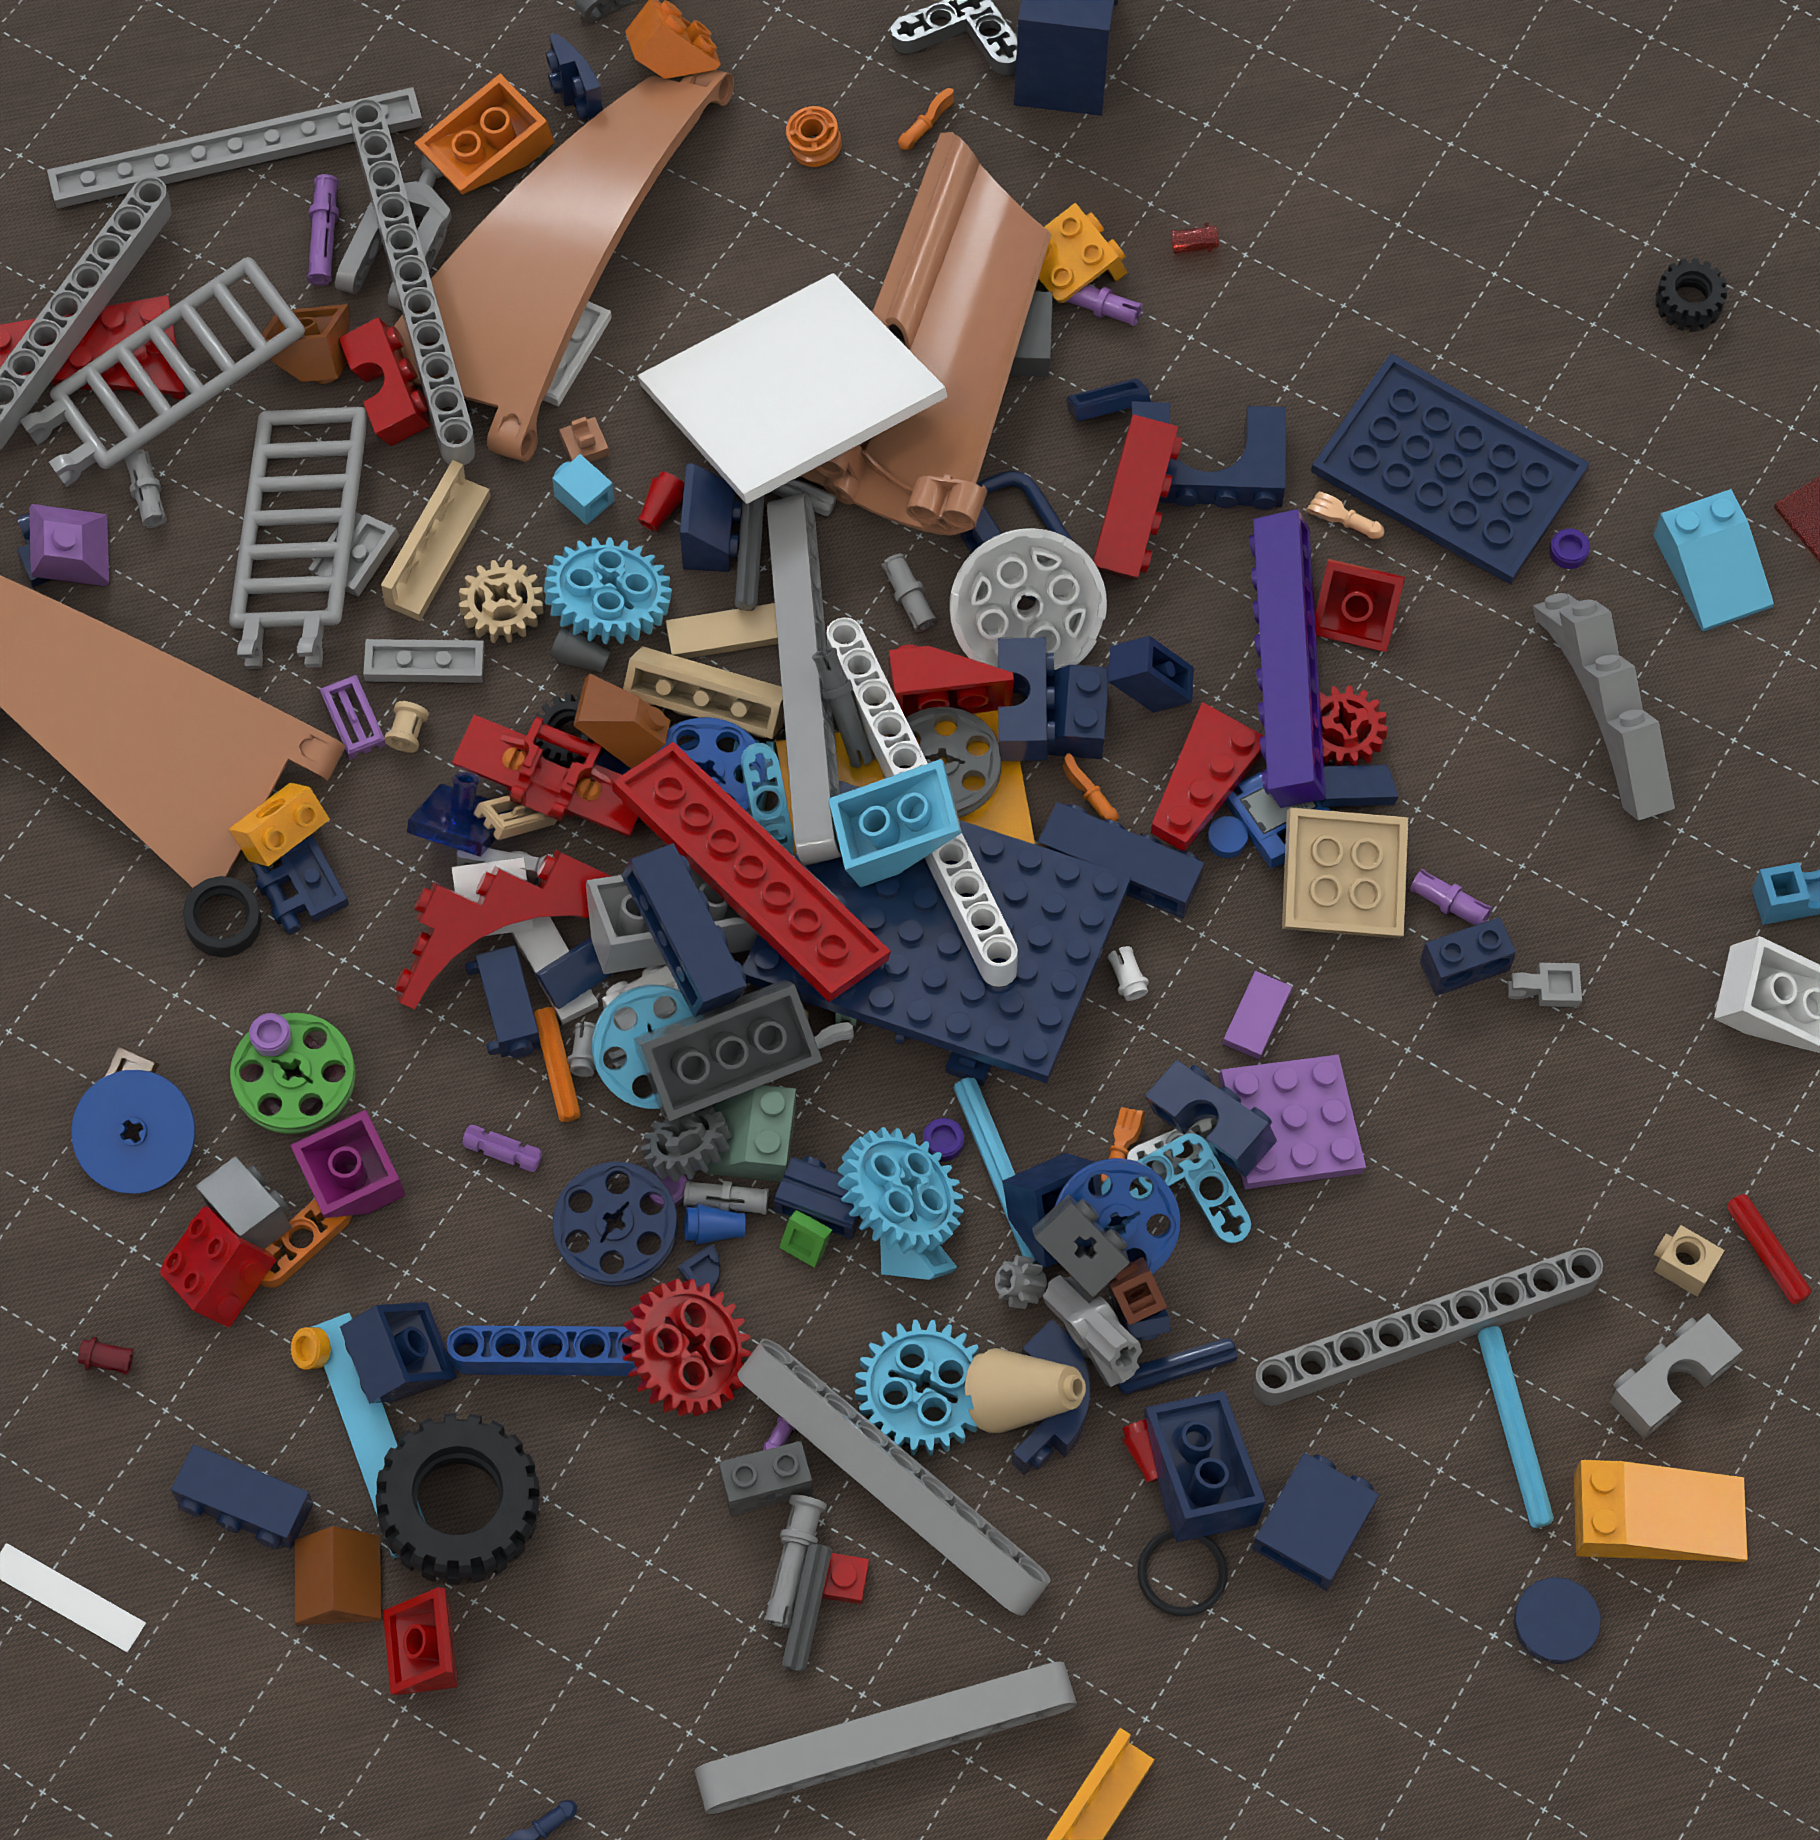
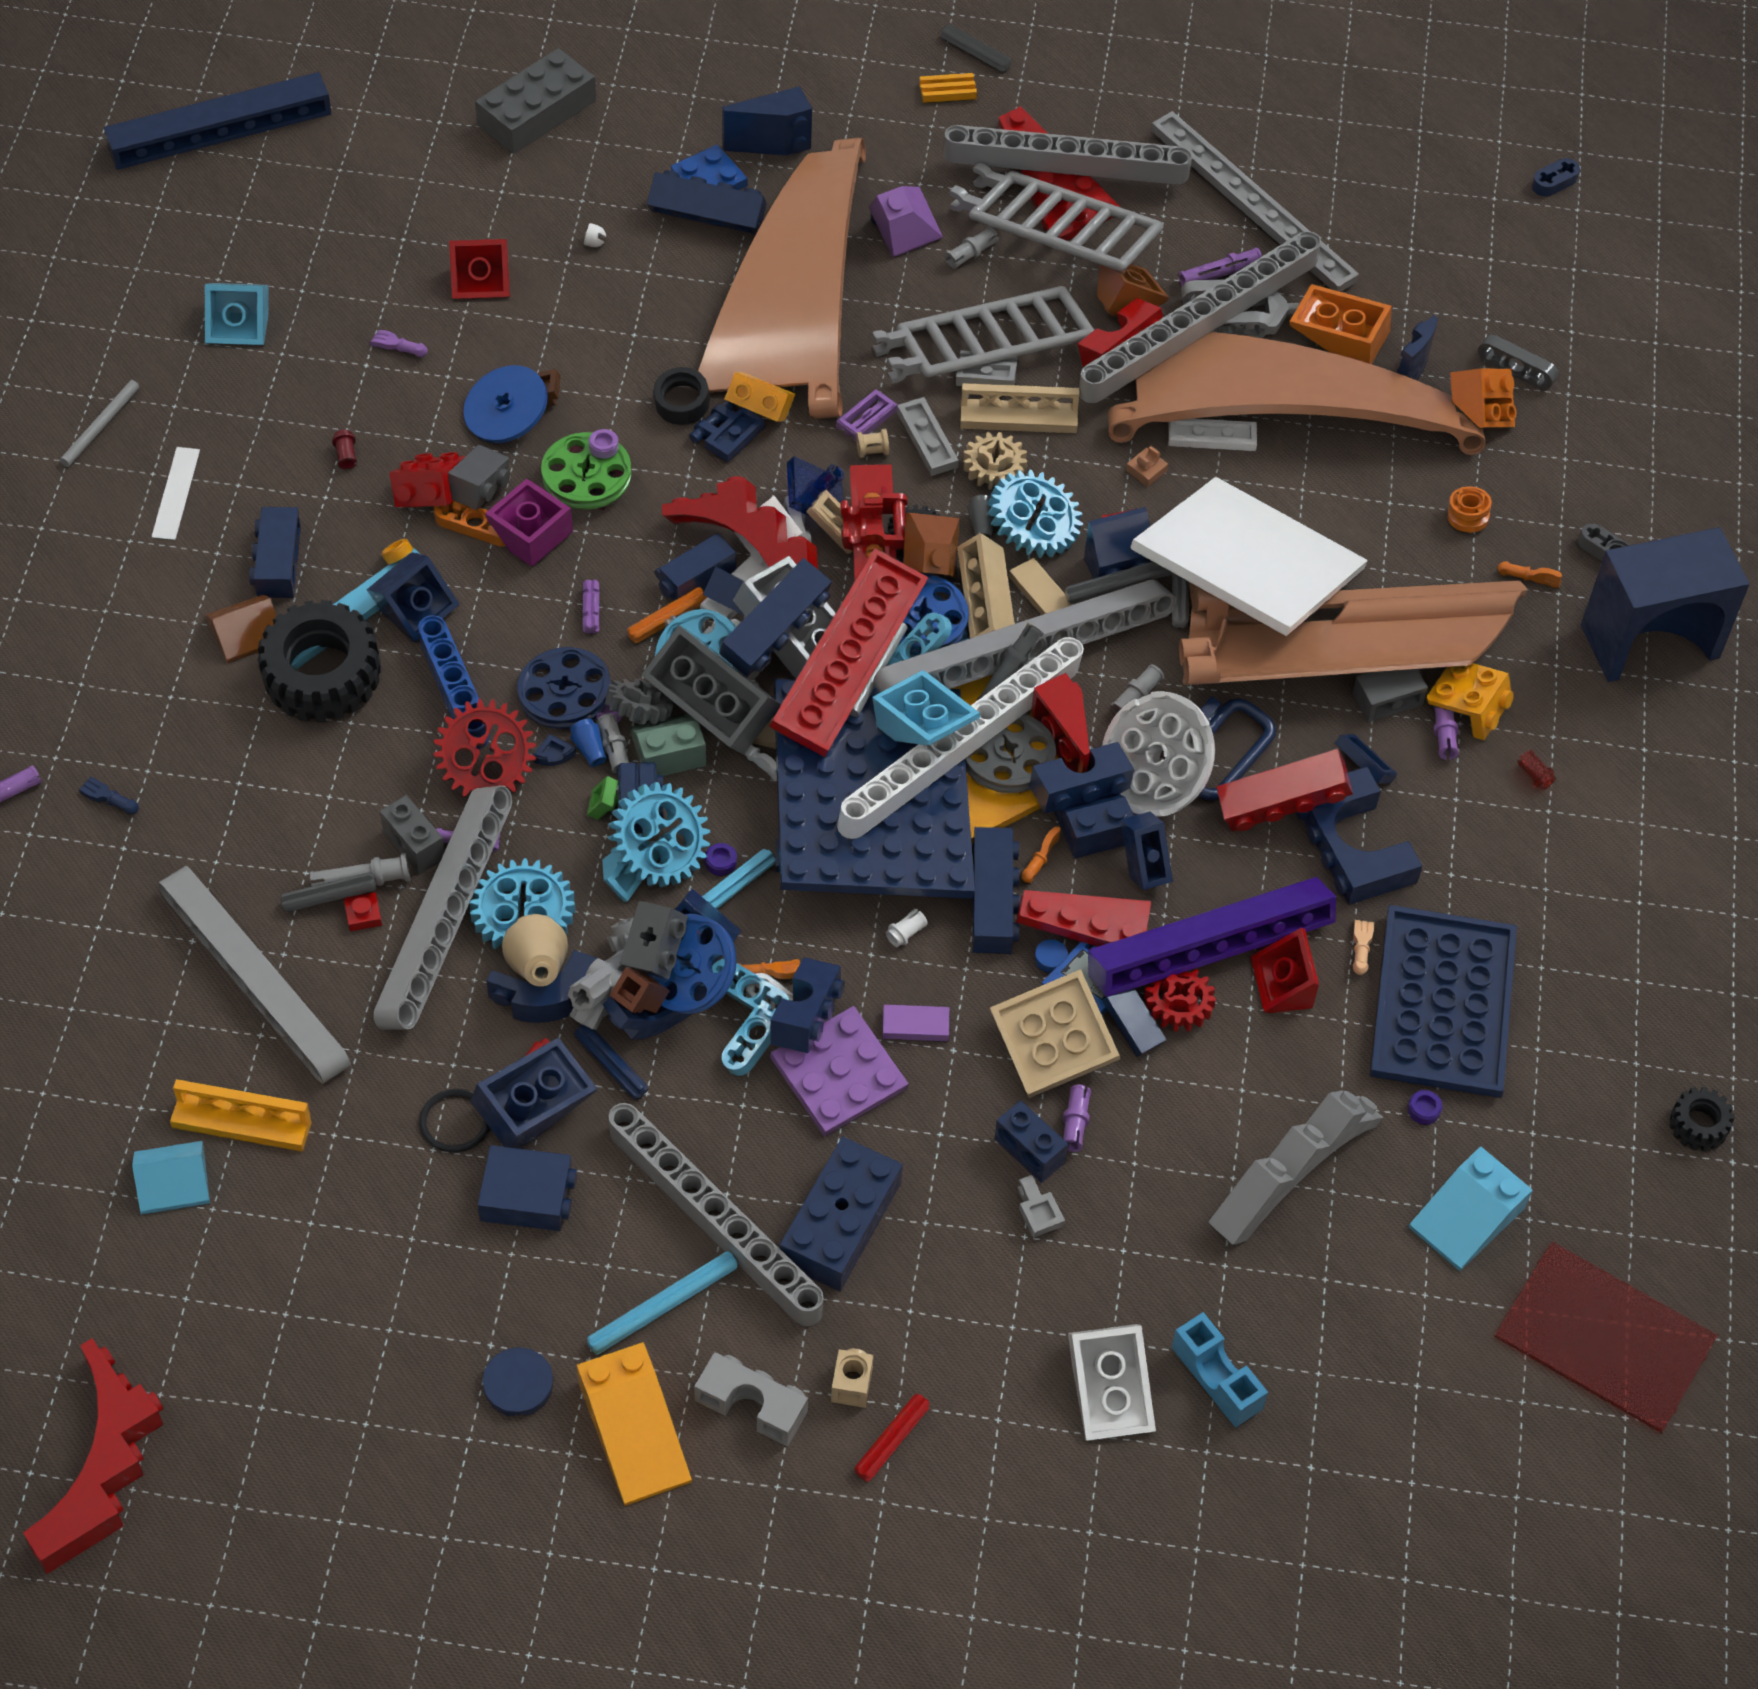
camera: 65 degrees right, 10 degrees down
(420, 1644) = (217, 689): red slope -> none
(582, 489) = (1106, 475): medium azure brick -> none
(1504, 1223) = (842, 1212): none -> dark blue brick

